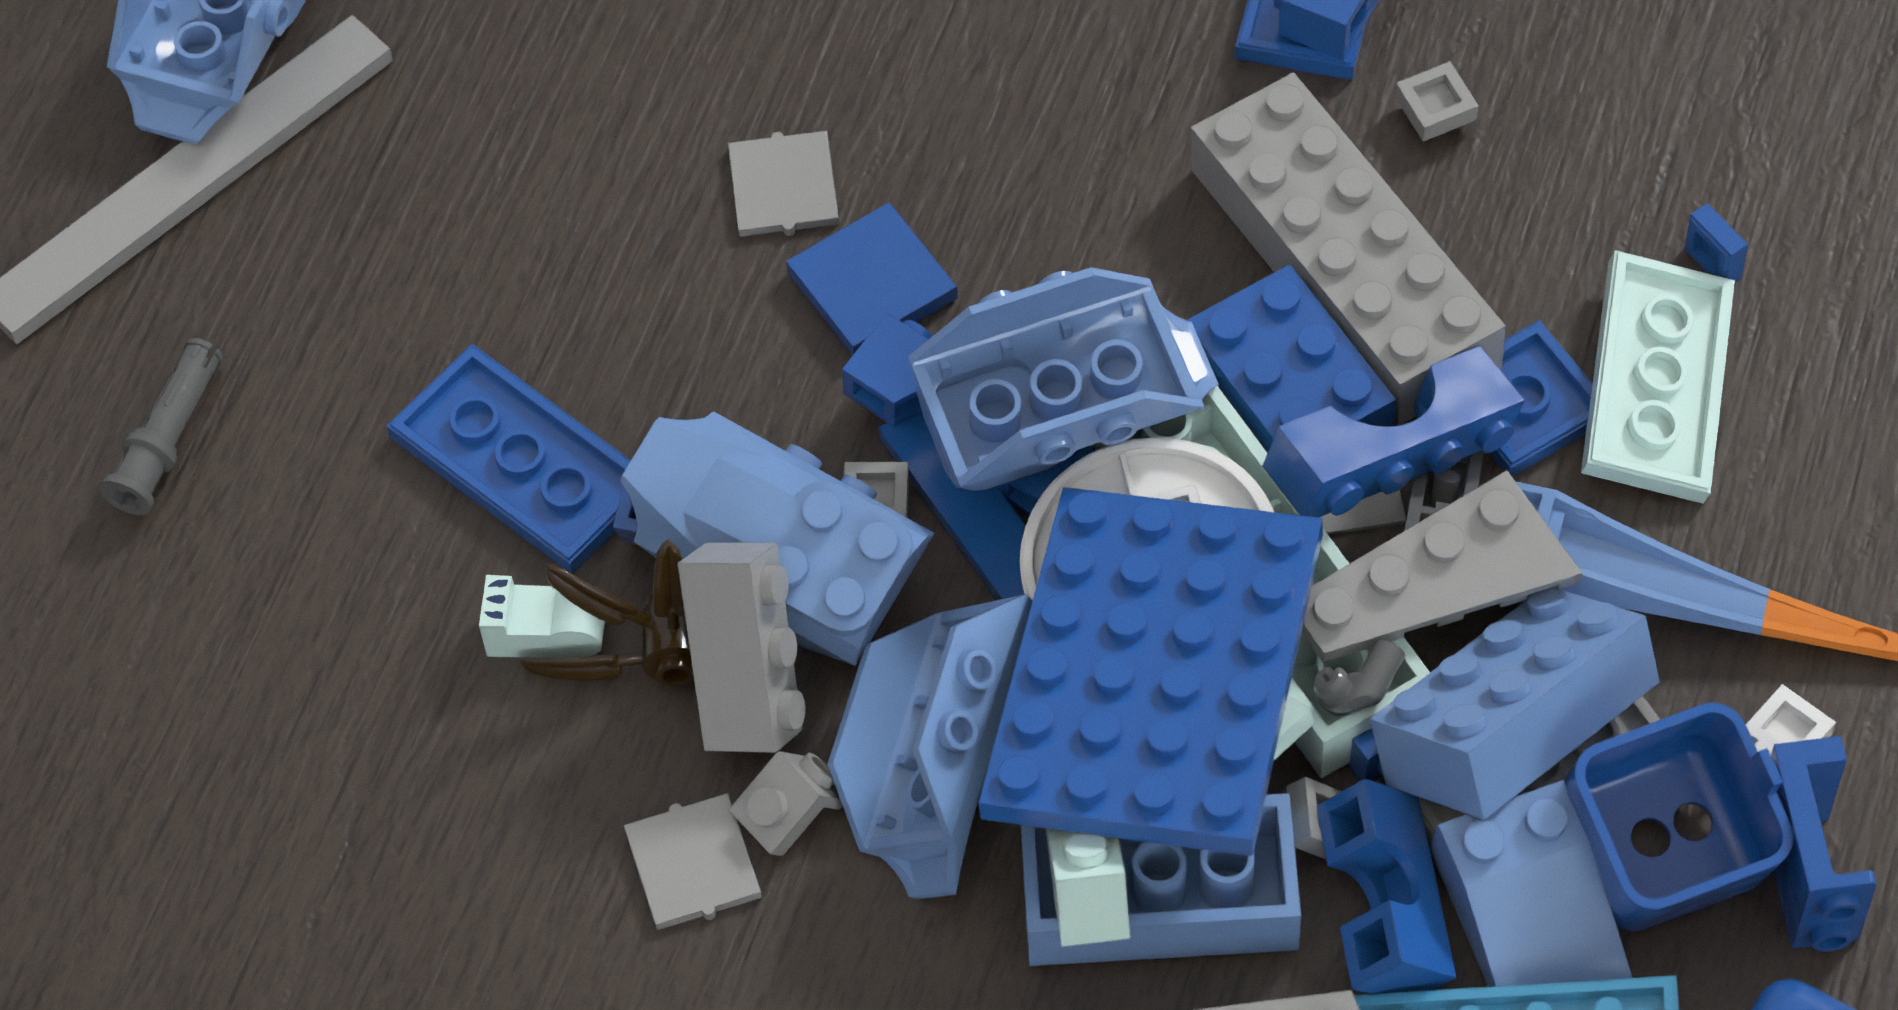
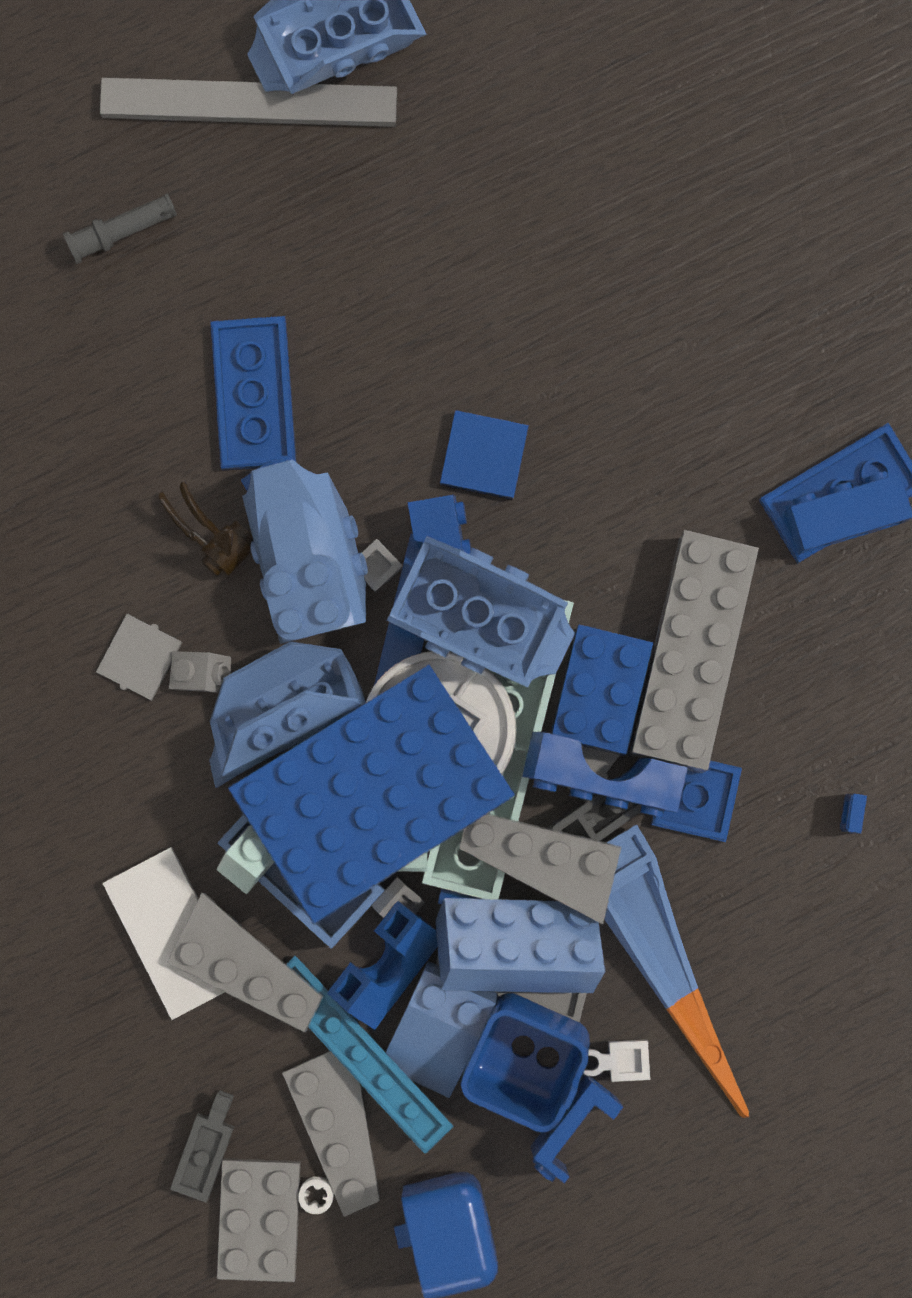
camera: 40 degrees right, 25 degrees up
(535, 622) = (170, 471): light aqua leg -> none
(741, 646) = (231, 595): light grey brick -> none
(783, 183) = (498, 365): light grey piece -> none
(1363, 688) = (460, 878): dark grey arm -> none
(1436, 101) = (816, 617): light grey plate -> none
(1658, 377) = (761, 847): light aqua tile -> none

